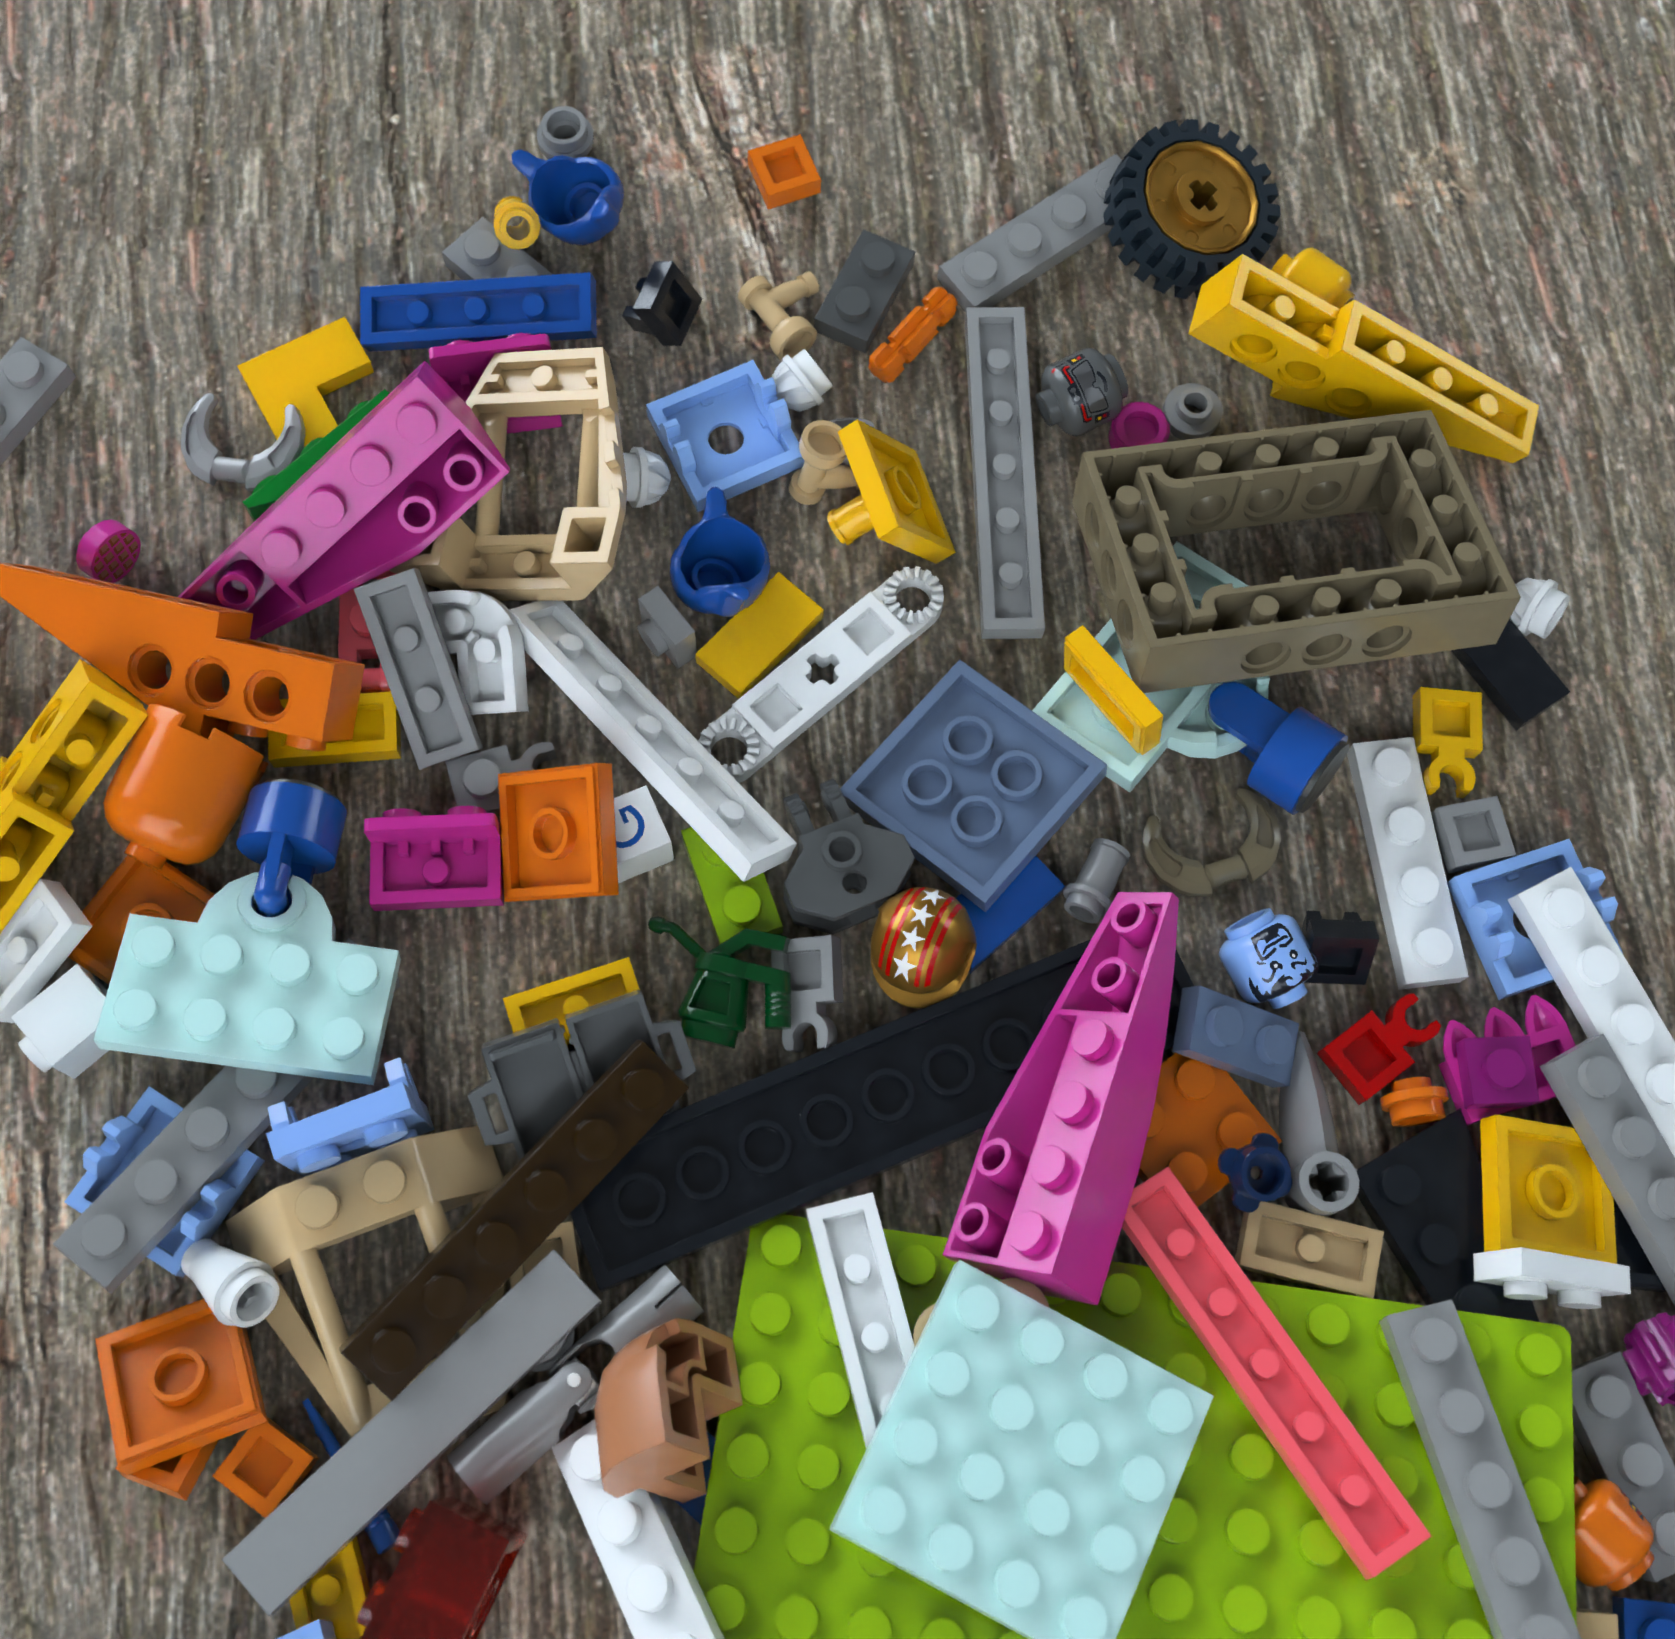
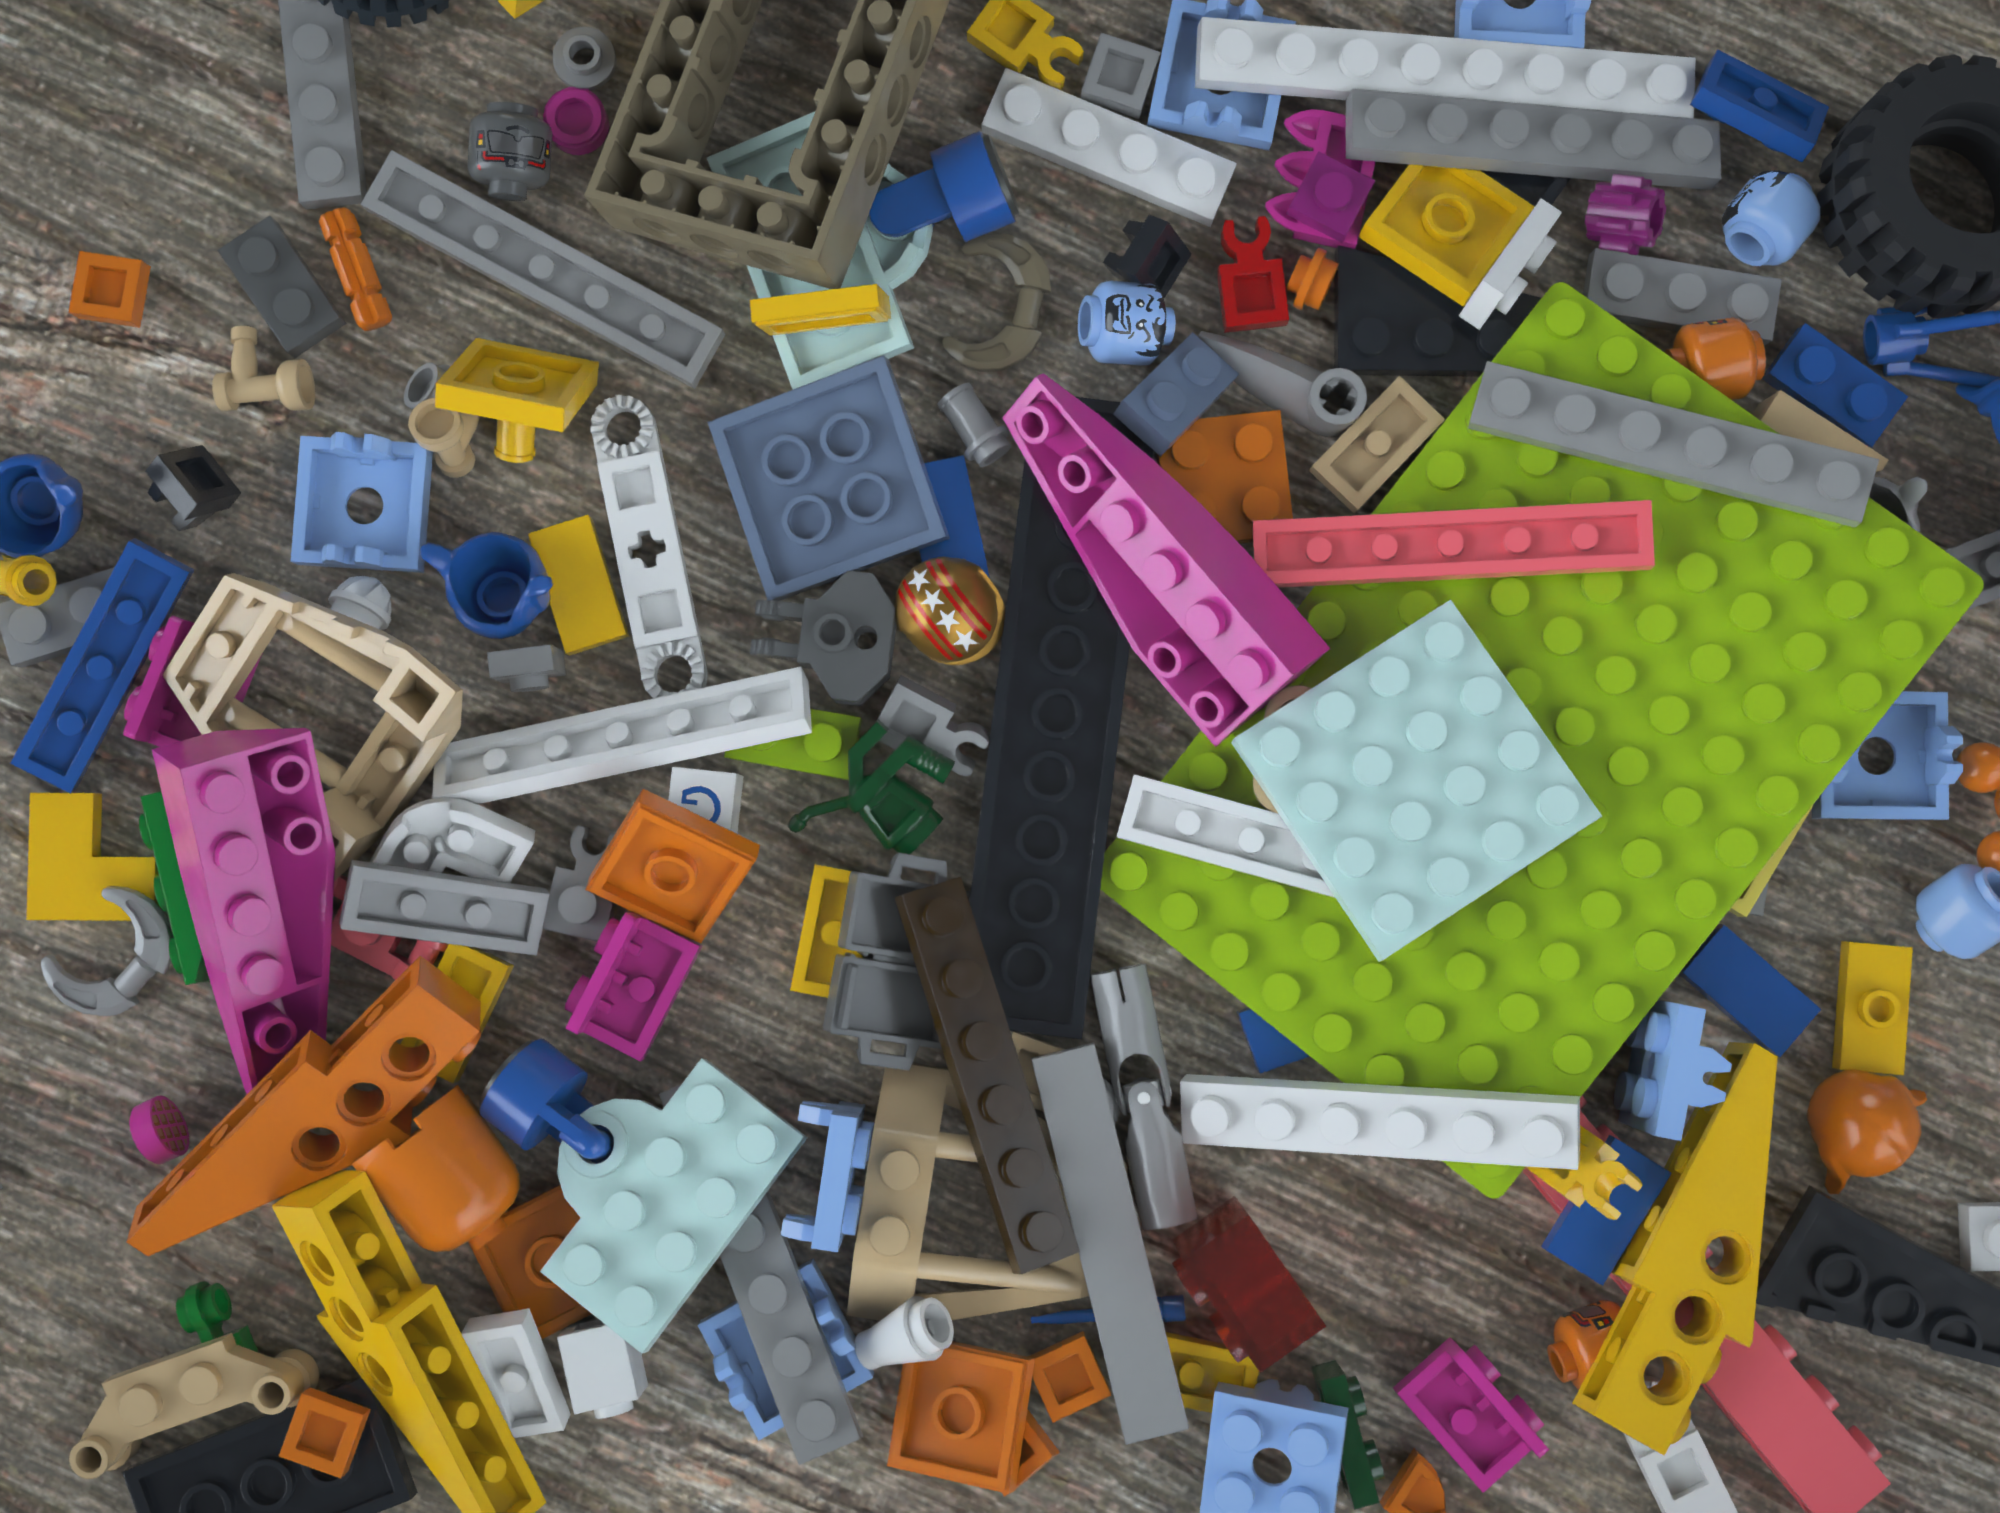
camera: 55 degrees left, 15 degrees up
(657, 1405) = (1204, 1043): nougat brick -> none
(800, 382) = (347, 404): white plate -> none
(1274, 1175) = (1310, 441): dark blue plate -> none

